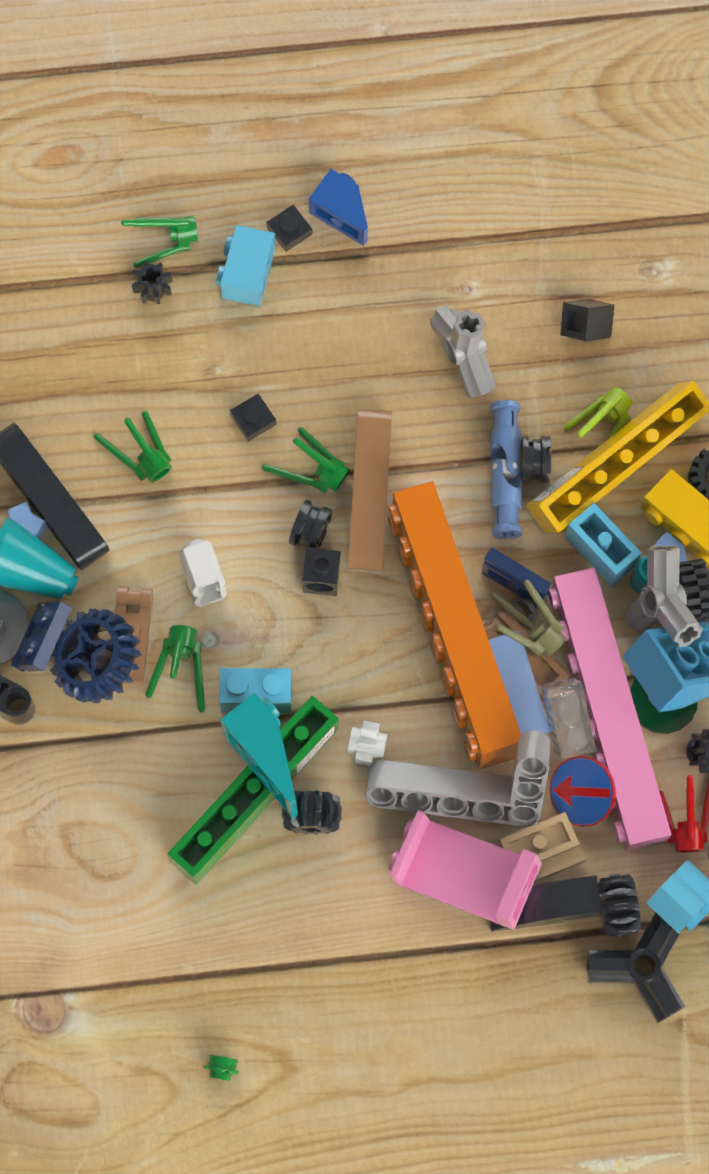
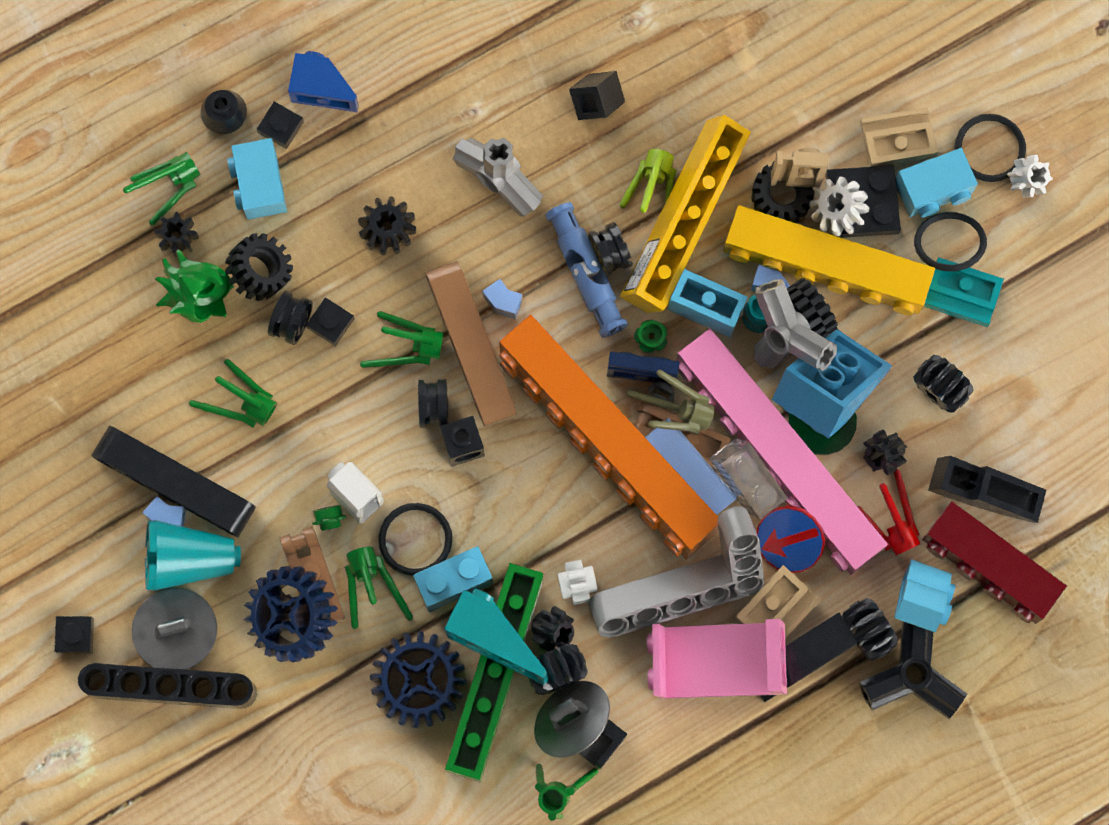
camera: 25 degrees left, 5 degrees up
(41, 636) = (231, 617): dark blue plate -> none
(145, 335) = (194, 289): none -> green hair
(170, 587) = (328, 517): none -> green plate
(196, 758) = (407, 693): none -> dark blue gear
(217, 396) = (290, 317): none -> black wheel
(225, 334) = (247, 278): none -> black tyre
(239, 610) = (404, 508): none -> black tyre
(244, 195) = (230, 115): none -> black cone
(256, 923) = (555, 795): none -> green plant
(304, 863) = (572, 719): none -> flat silver shield
(322, 897) = (605, 745): none -> black panel
(325, 774) = (552, 629): none -> black gear
(356, 355) = (375, 231): none -> black gear
(417, 464) = (502, 300): none -> light blue piece
(538, 545) = (651, 327): none -> green plate

